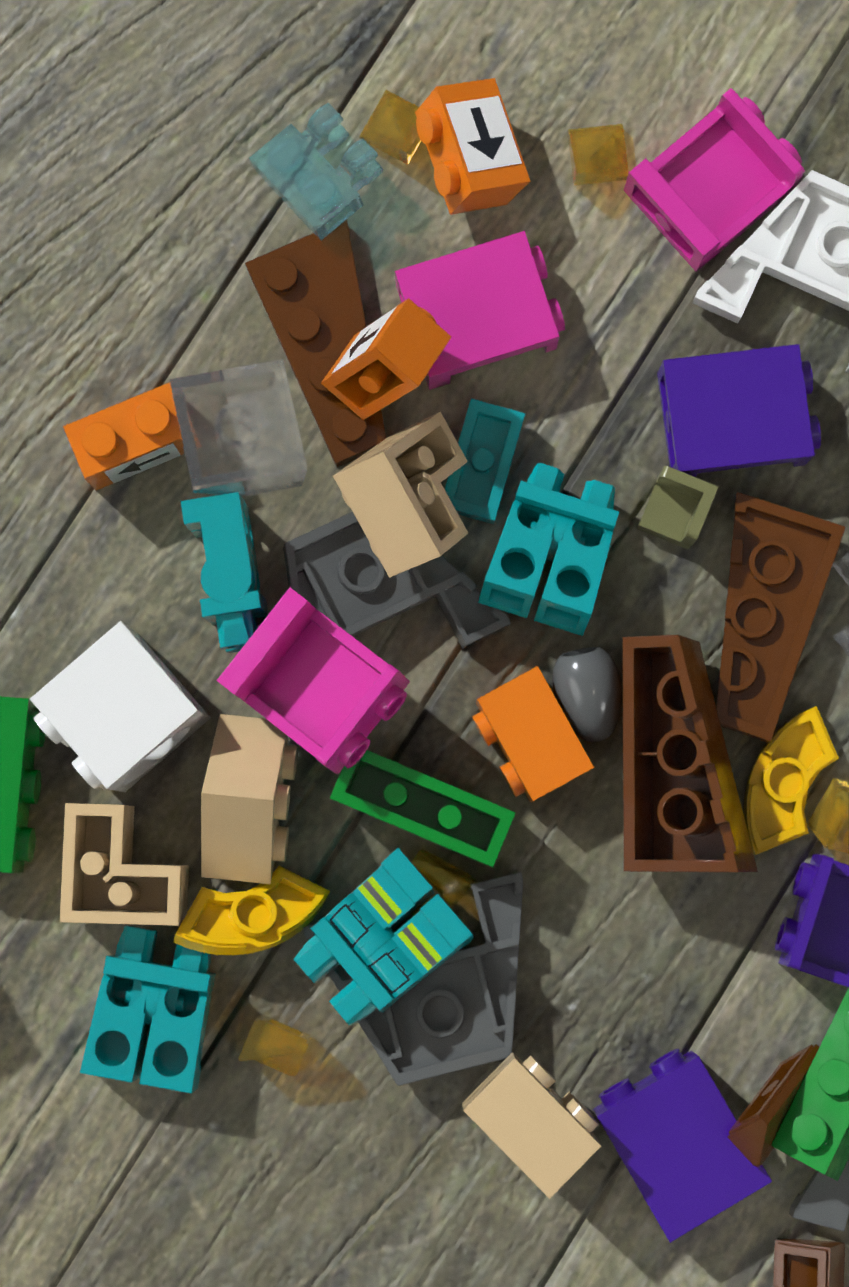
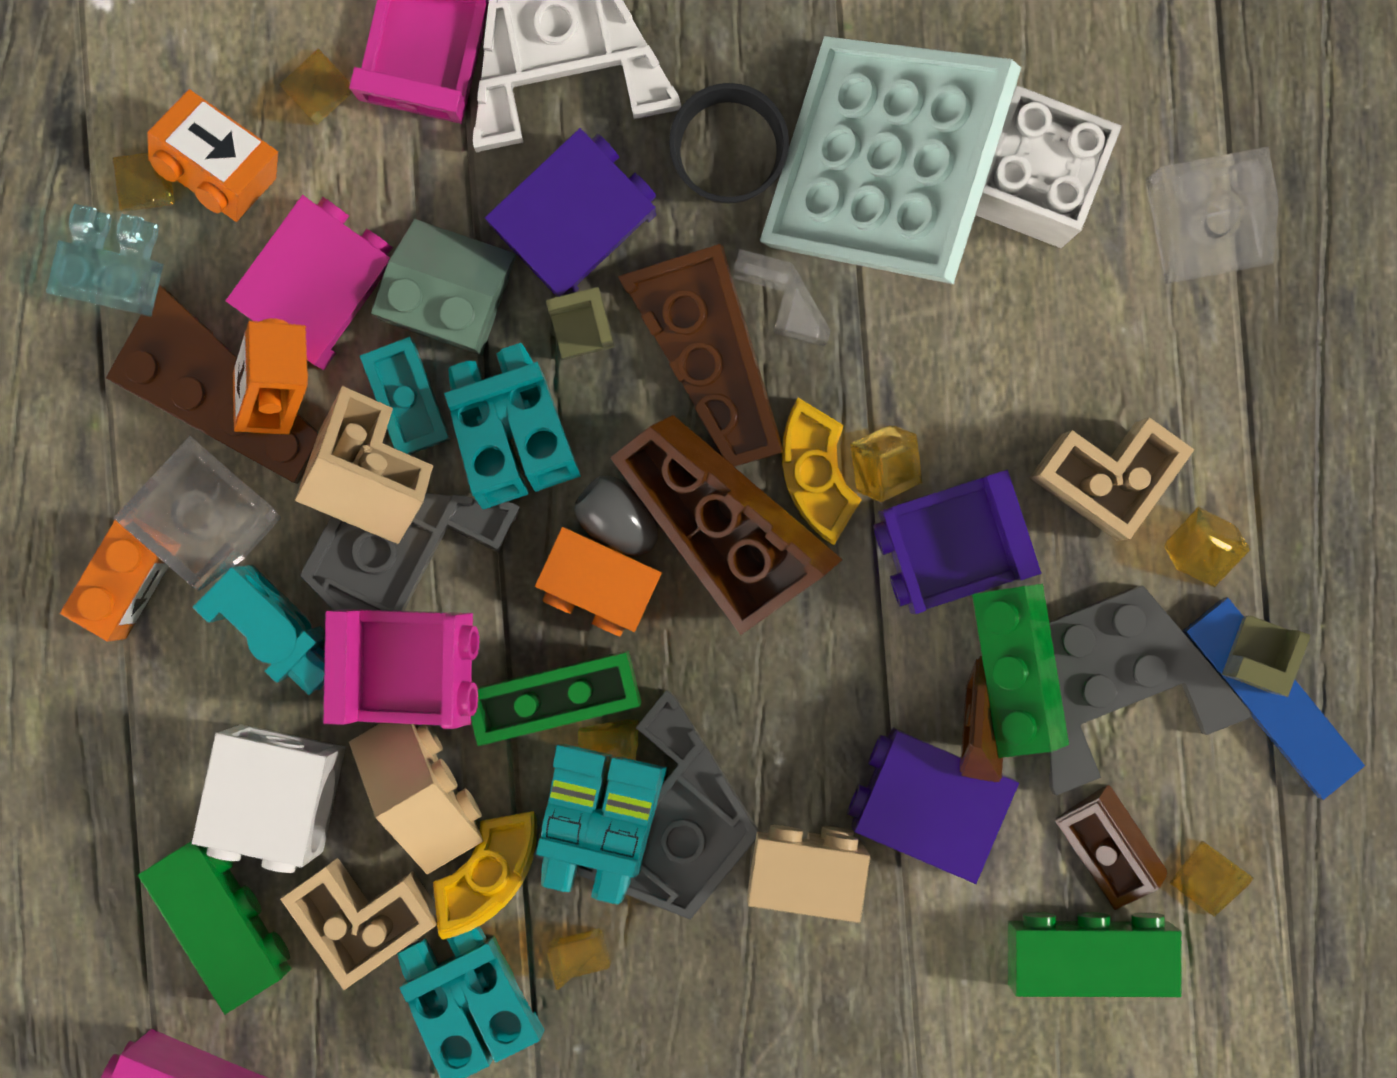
camera: 35 degrees left, 5 degrees up
(582, 394) = (444, 286): none -> sand green slope

